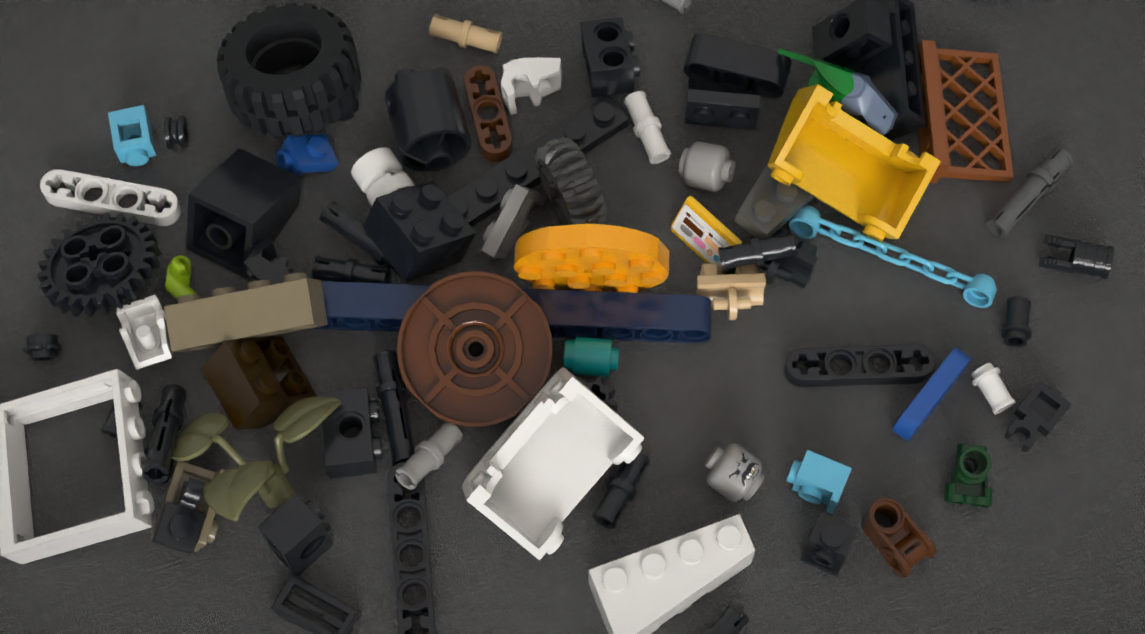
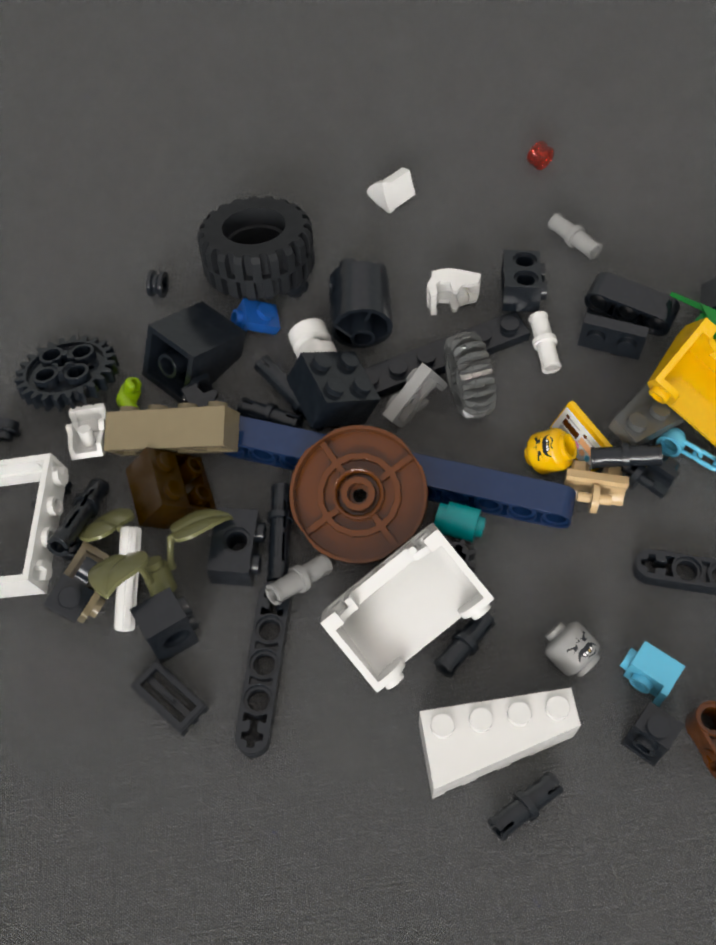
camera: 15 degrees right, 5 degrees down
(109, 201) = (95, 322): white beam -> none
(132, 135) = (122, 286): medium azure brick -> none
(244, 528) = (127, 591): none -> white axle
(465, 33) = (406, 247): tan pin -> none
(482, 126) = (407, 320): reddish brown beam -> none
(591, 258) = (476, 432): light orange piece -> none
(685, 257) = (550, 451): none -> yellow head
(706, 166) = (591, 380): light grey head -> none

